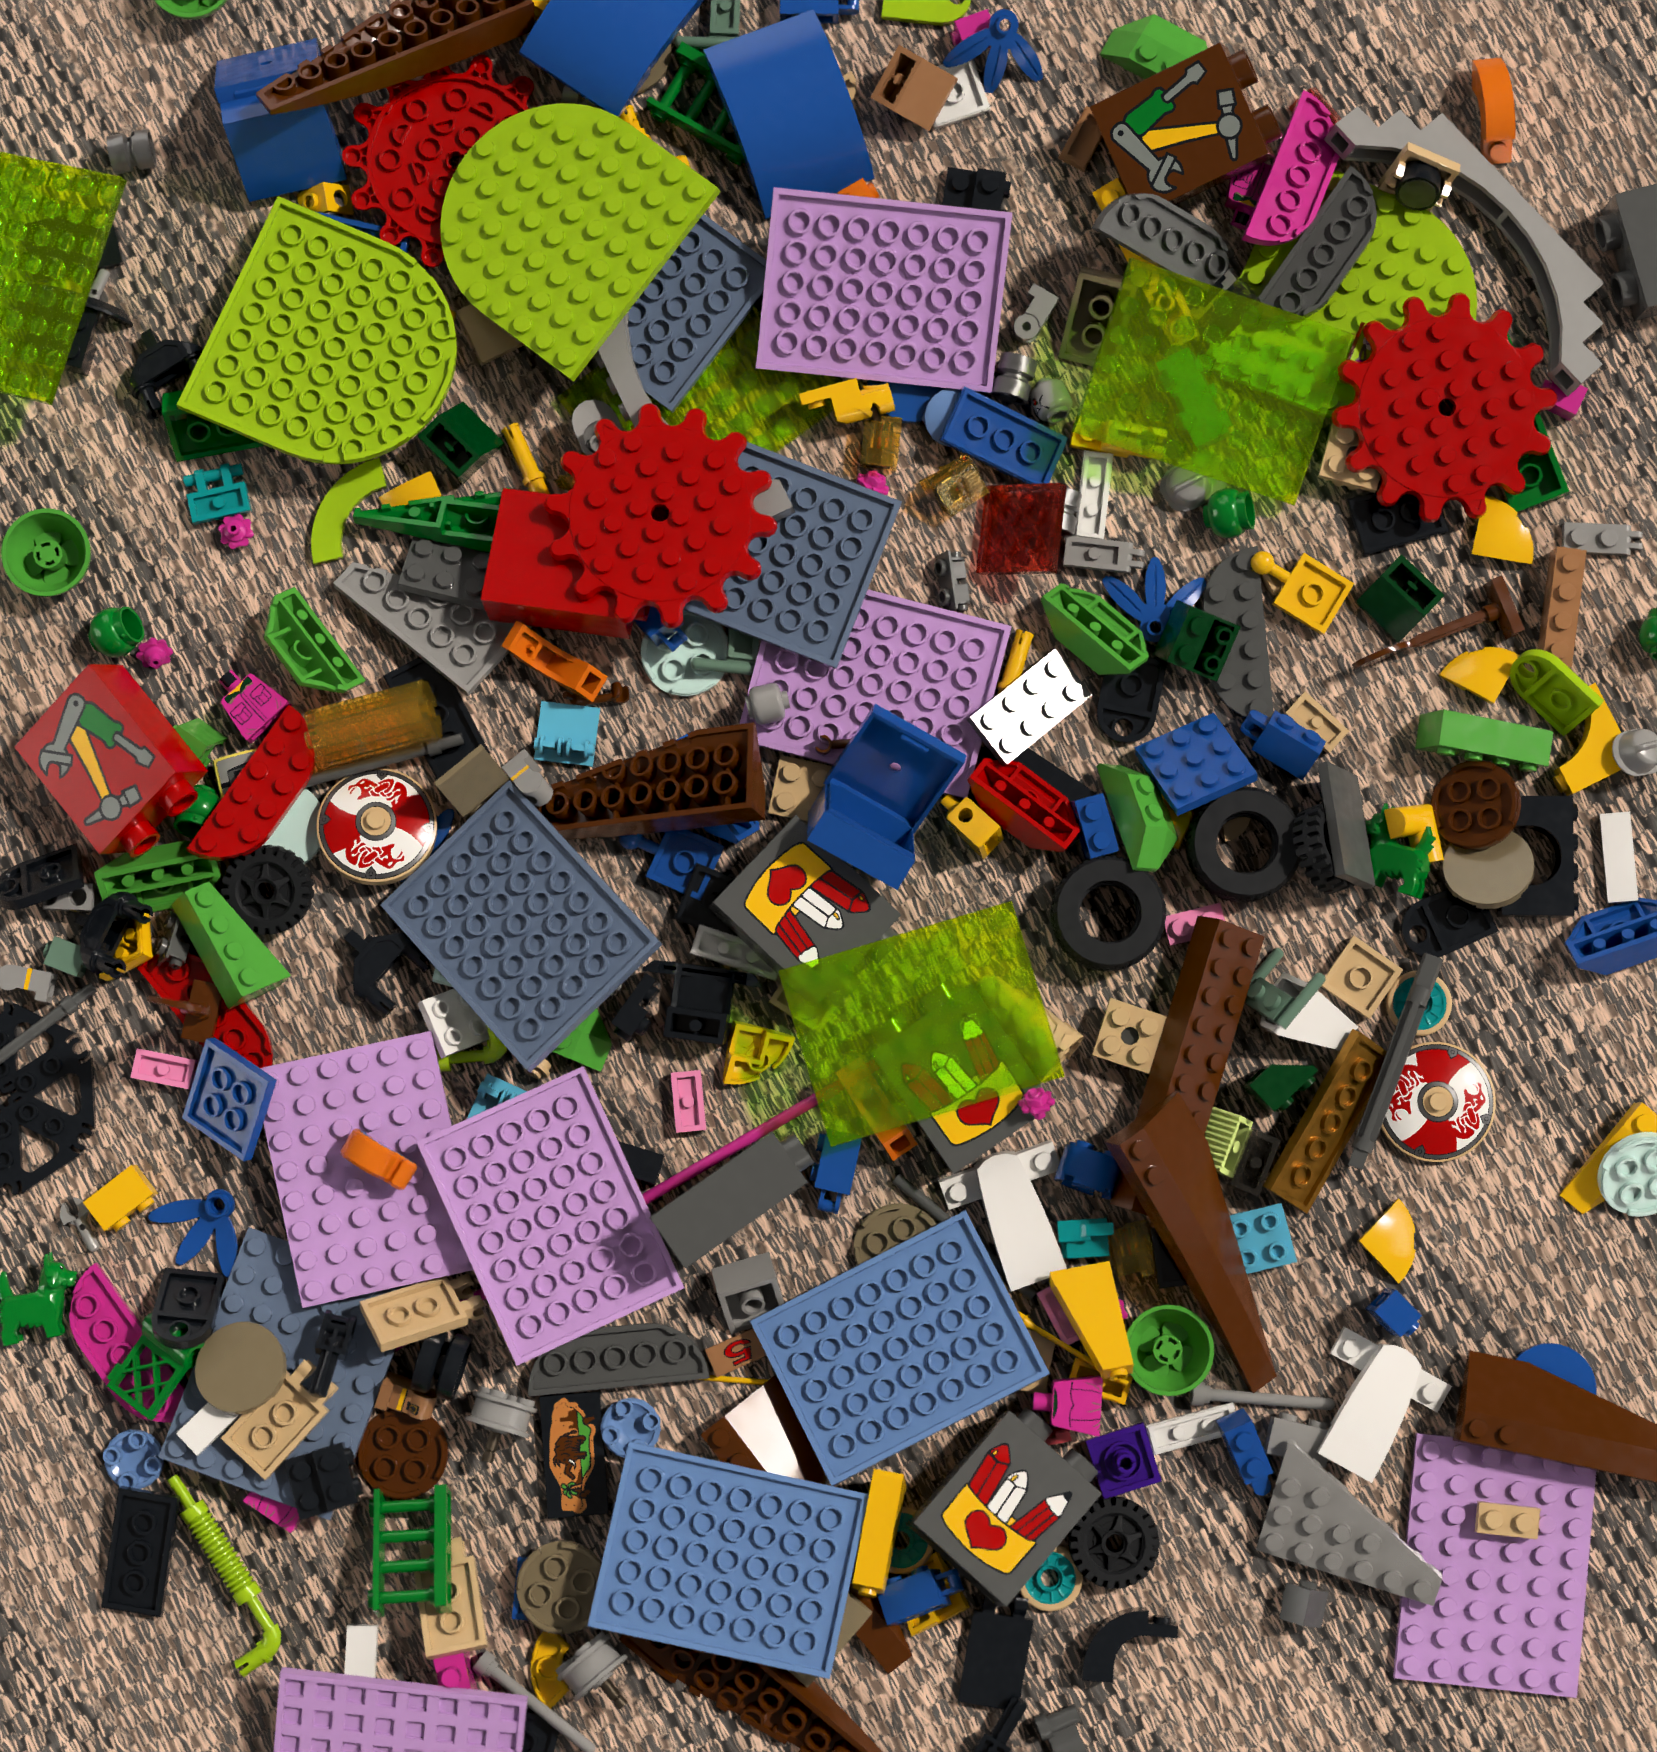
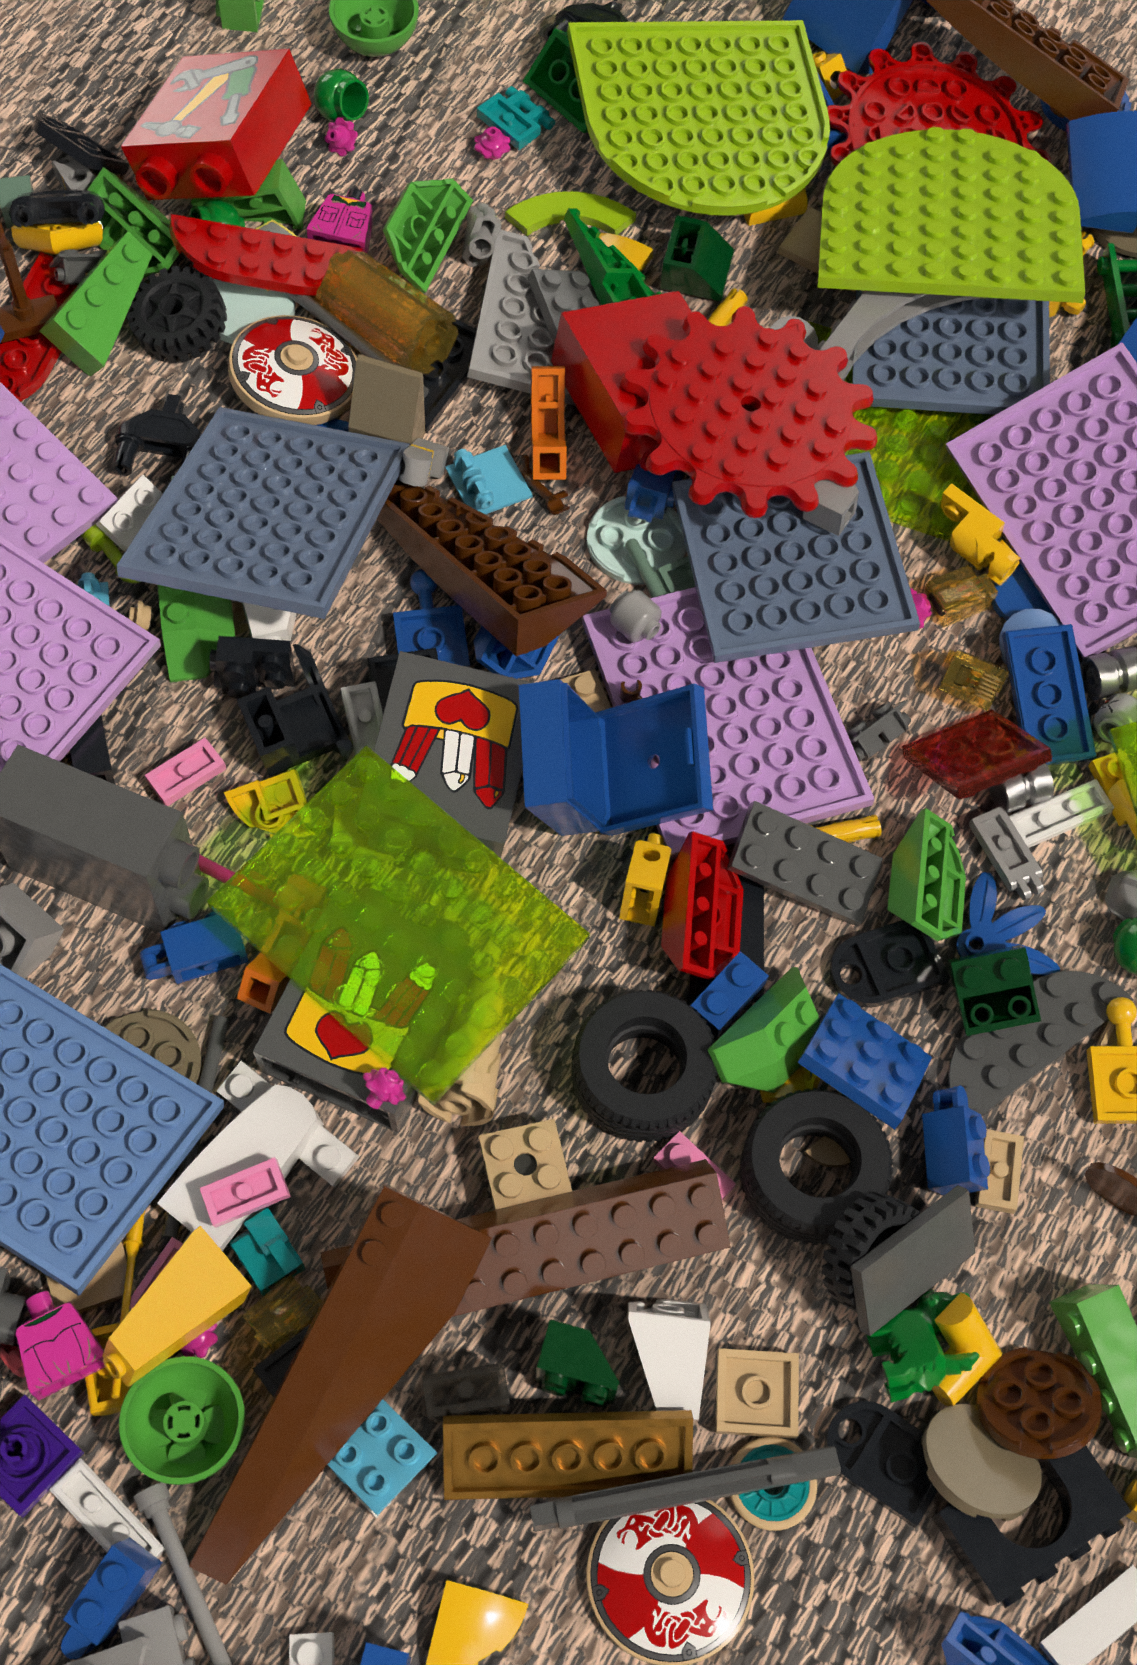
camera: 55 degrees right, 20 degrees down
(327, 597) = (480, 234): none -> light grey rock
(1045, 1231) = (245, 1192): none -> bright pink plate
(1087, 1169) = (343, 1203): blue brick -> none
(1226, 1139) = (471, 1342): yellowish green brick -> none
(1274, 1002) = (664, 1297): sand green plate -> none

